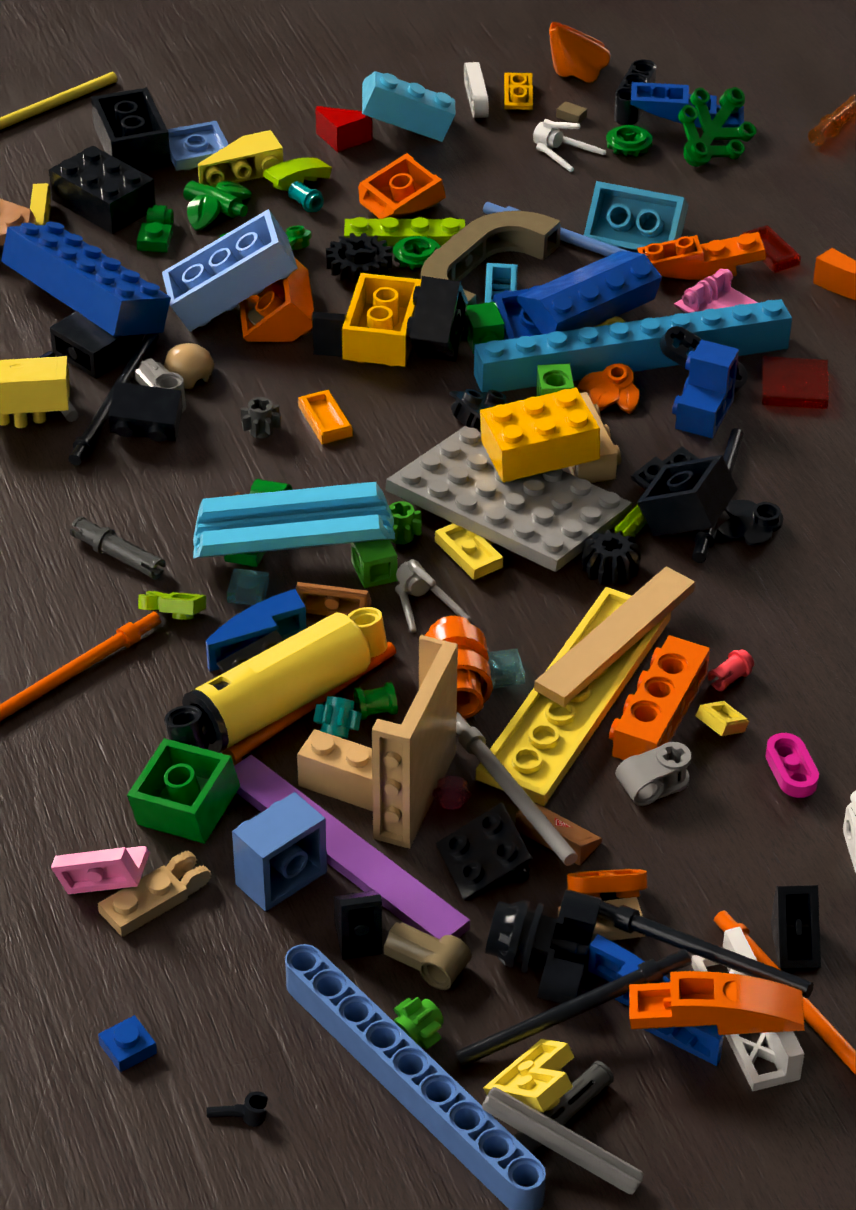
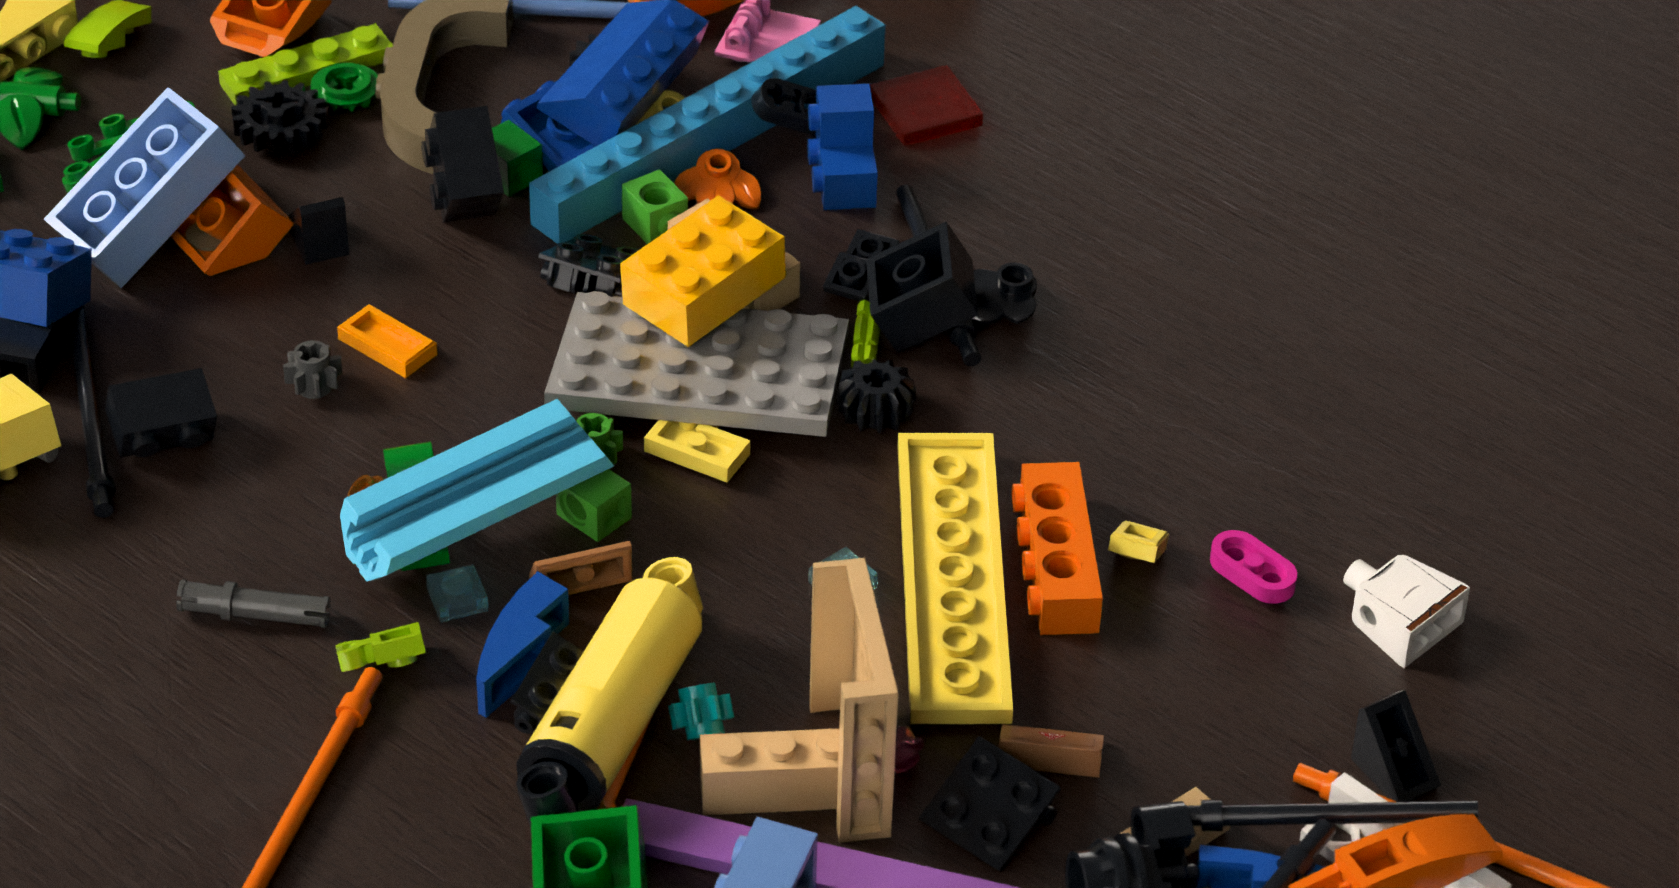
camera: 30 degrees left, 0 degrees up
(156, 375) = (129, 362): light grey piece -> none
(190, 362) = (158, 334): tan hair -> none
(309, 198) = (152, 59): teal pin -> none
(376, 700) = (731, 671): green bush -> none
(378, 320) = (382, 186): yellow brick -> none
(417, 582) = (665, 508): light grey plant -> none
(473, 669) = (781, 583): orange piece -> none
(475, 743) = (1002, 725): light grey bar -> none
(499, 274) = (481, 79): medium azure slope -> none
(614, 636) = (957, 489): tan tile -> none
(624, 882) = (1167, 777): orange plate -> none
(653, 777) = (1114, 633): light grey piece -> none
(737, 665) = (1109, 472): coral pin -> none

